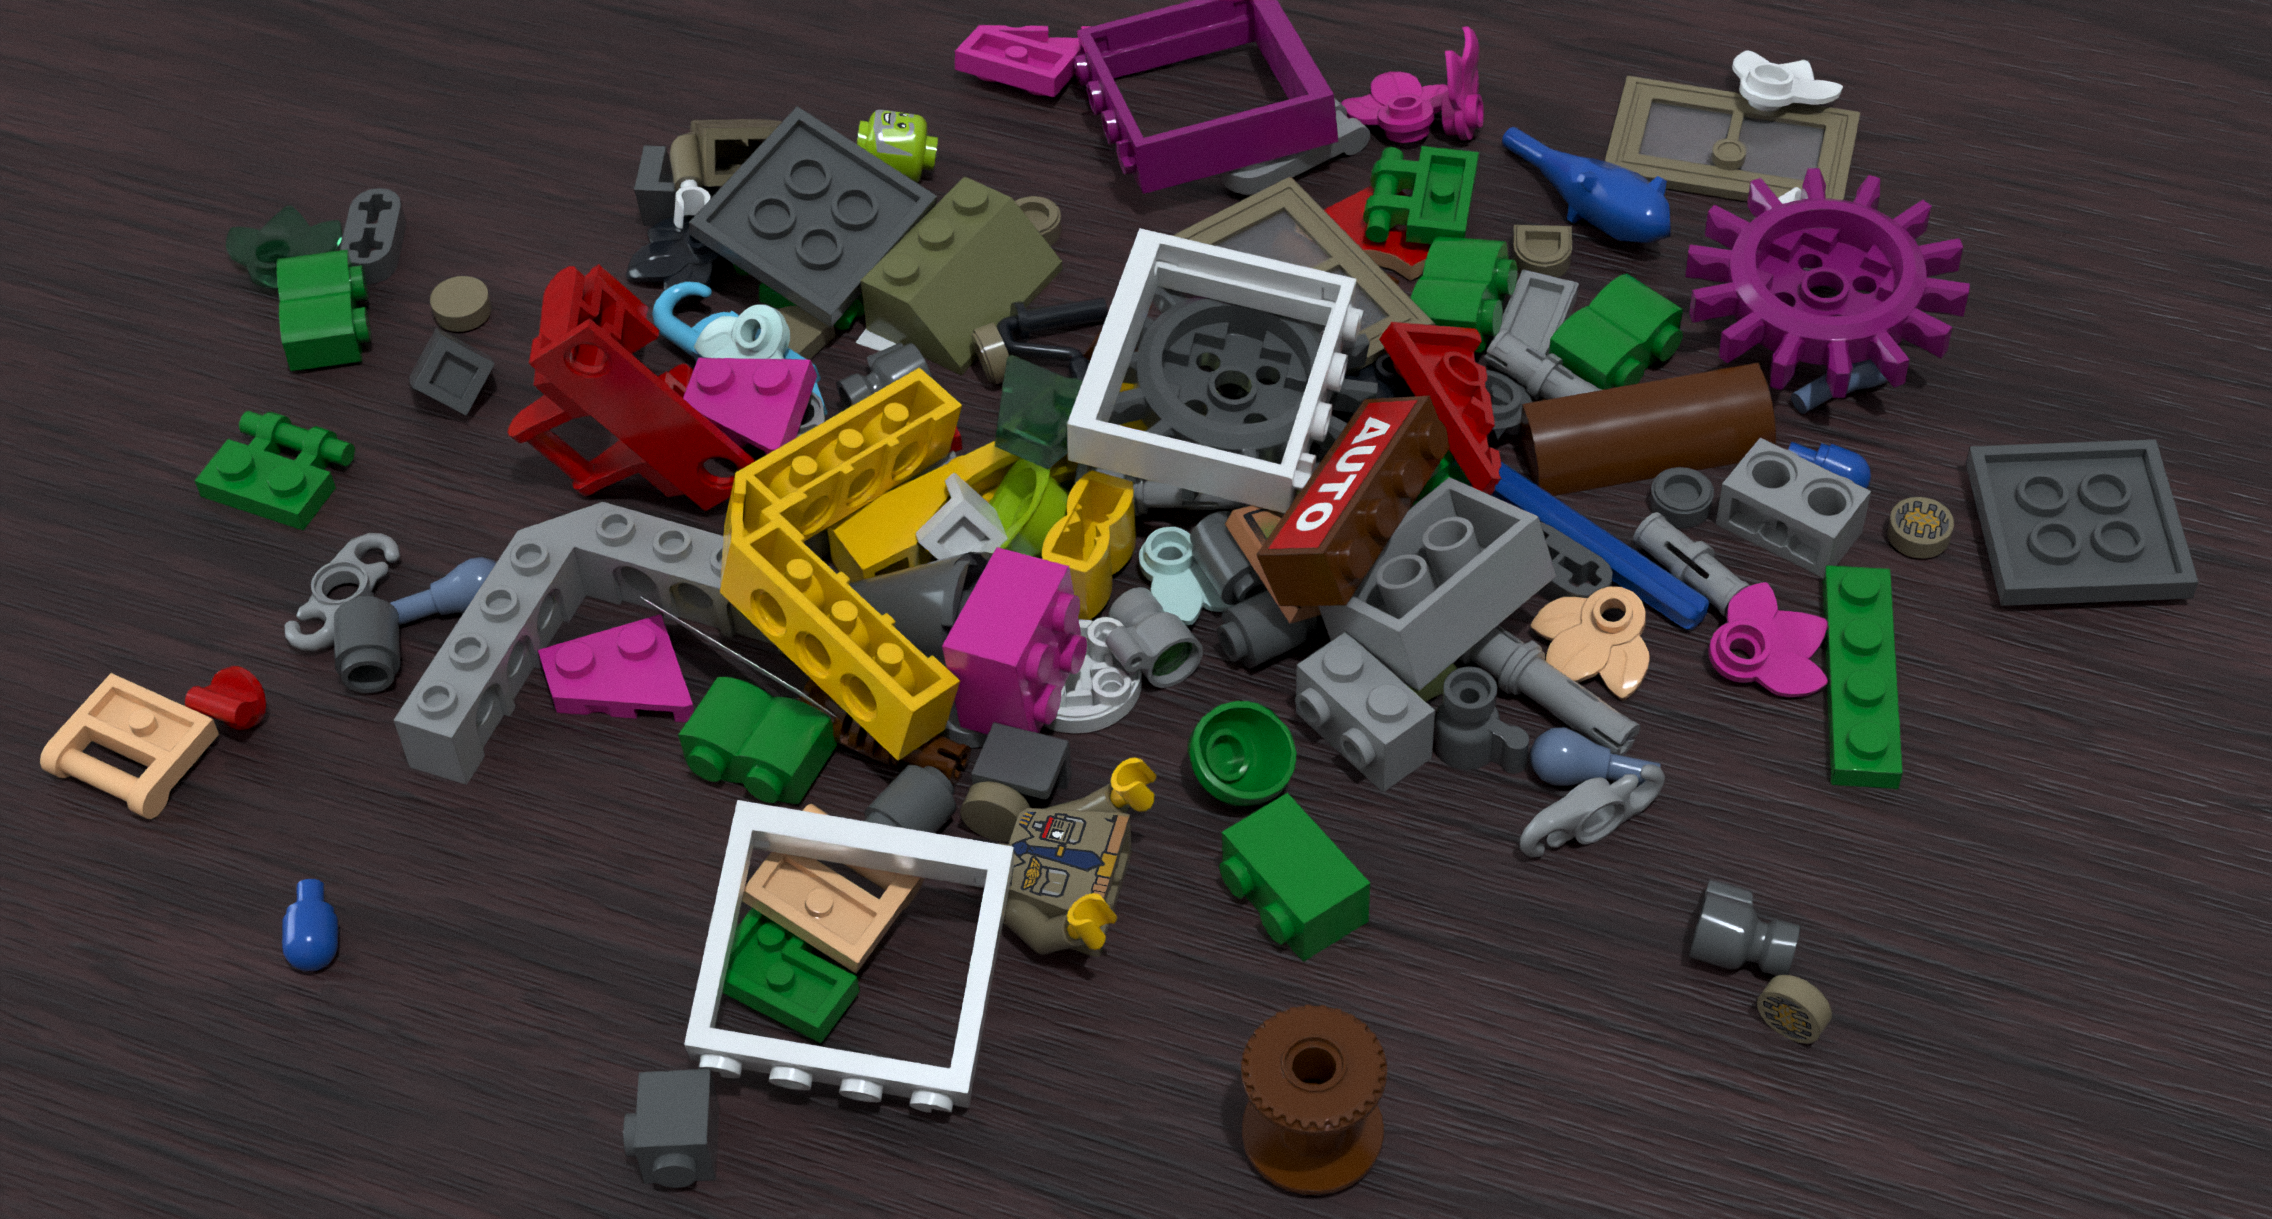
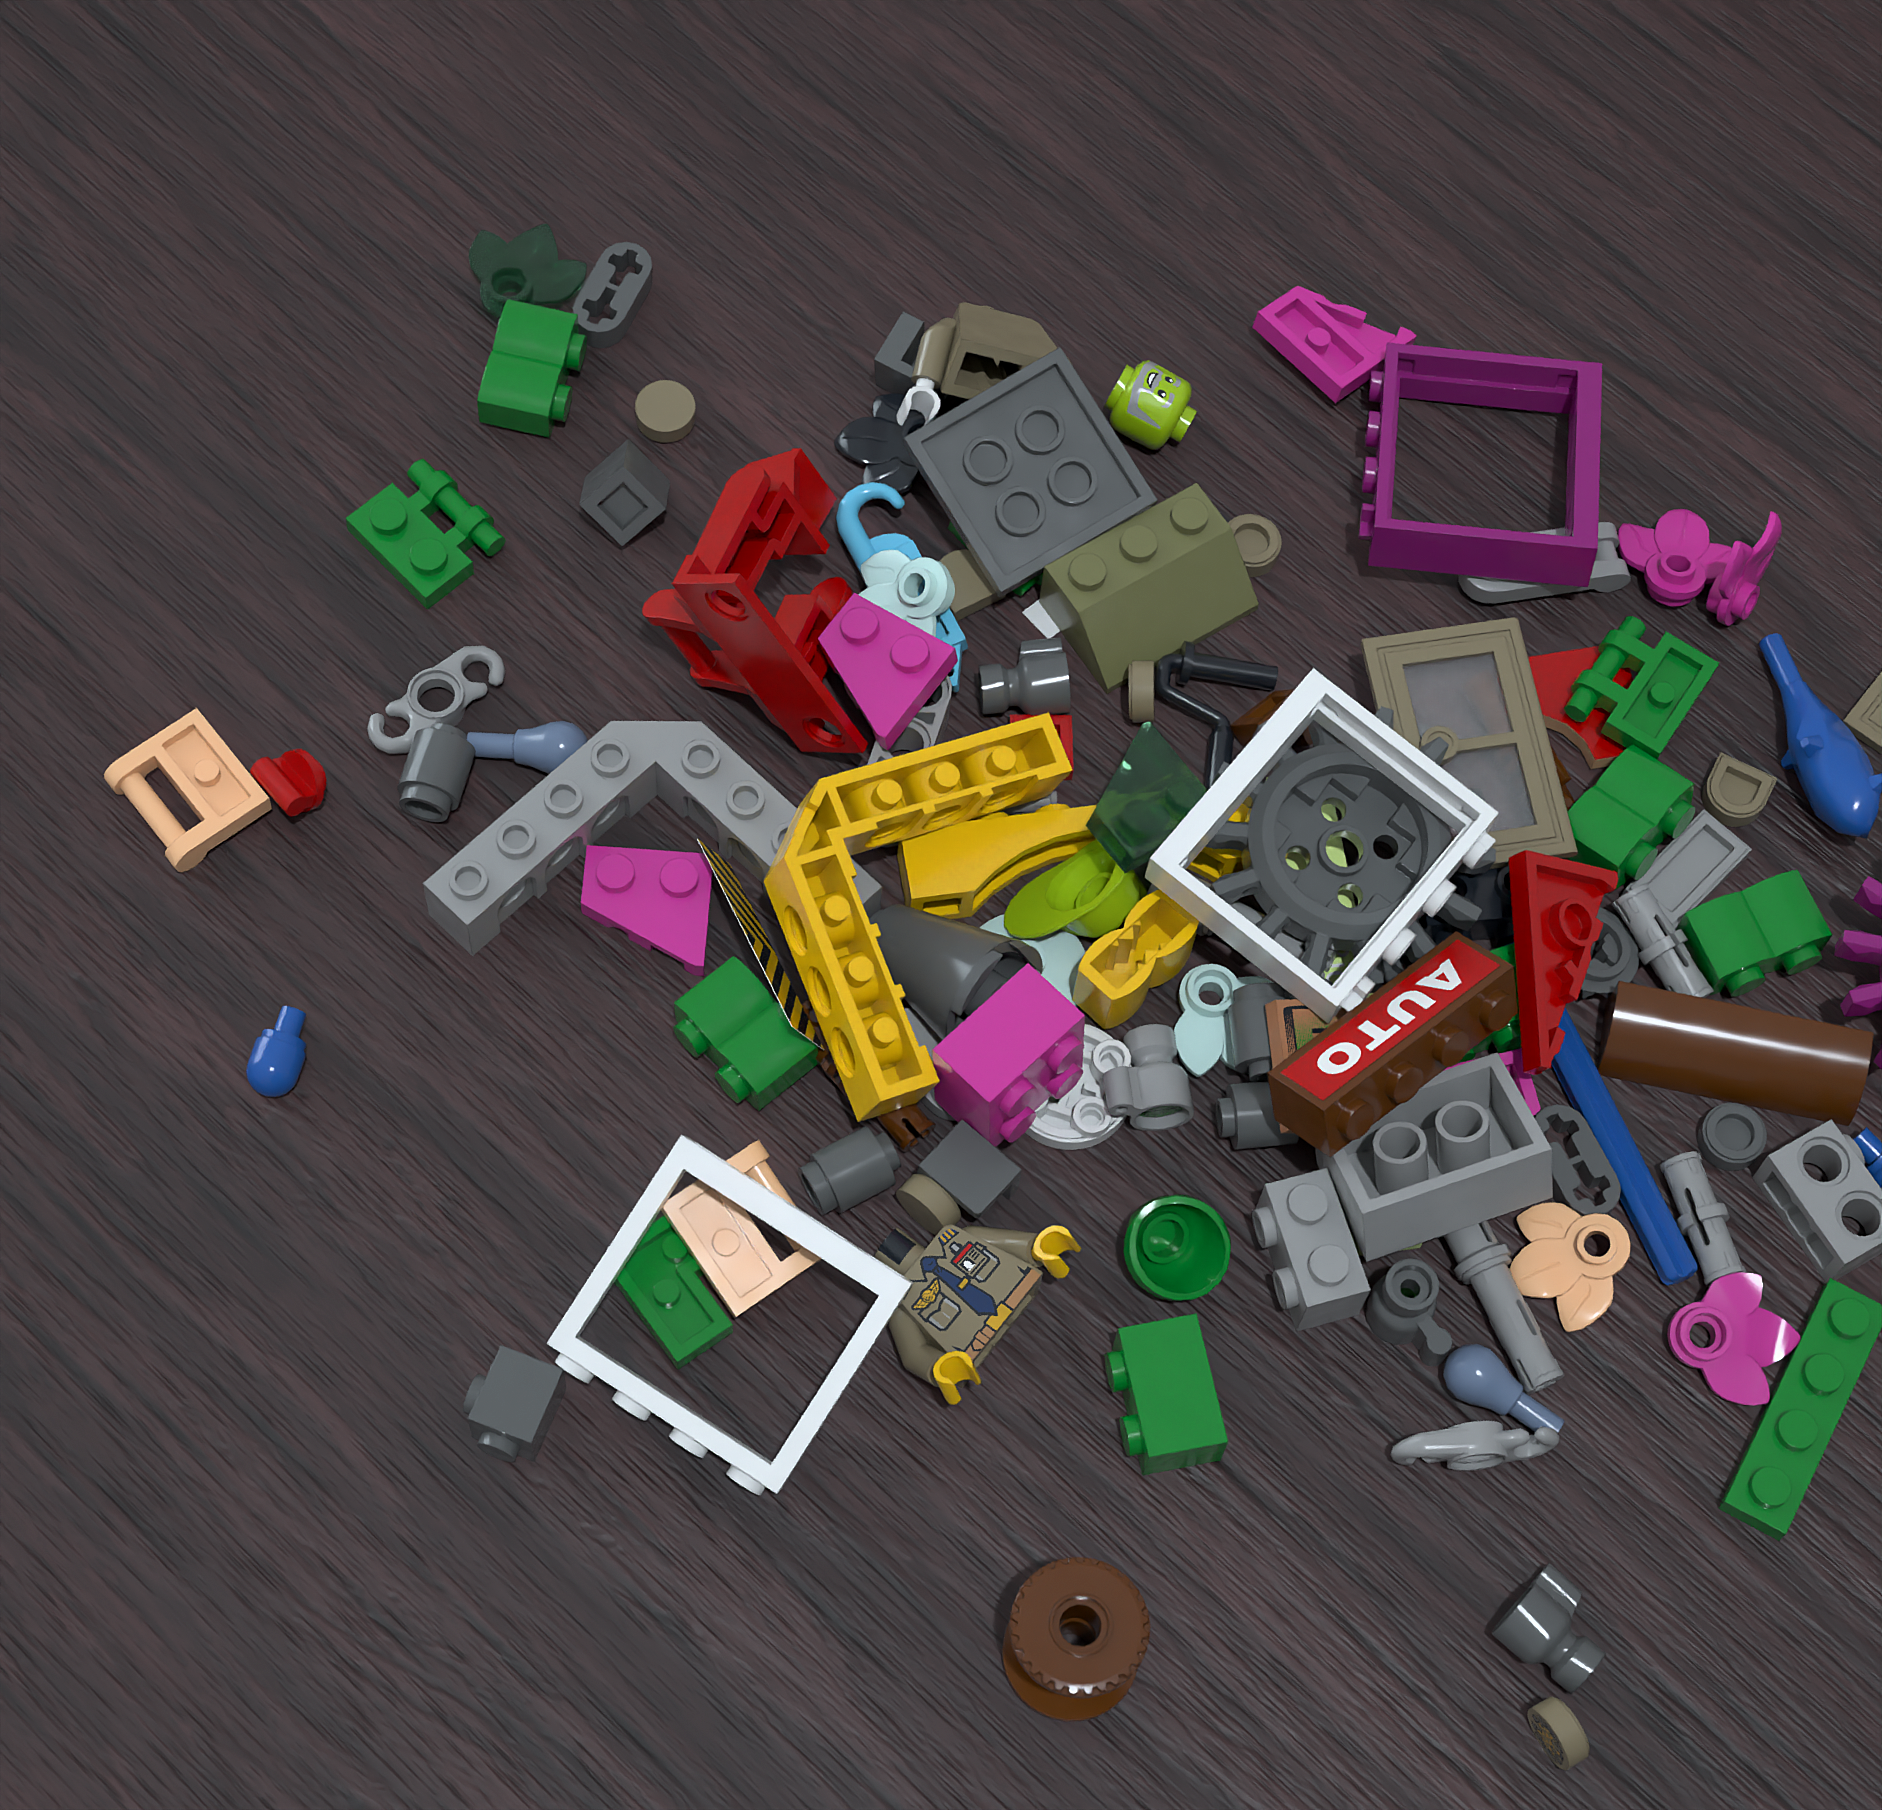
camera: 15 degrees right, 15 degrees up
(962, 524) = (1026, 895): white panel -> none

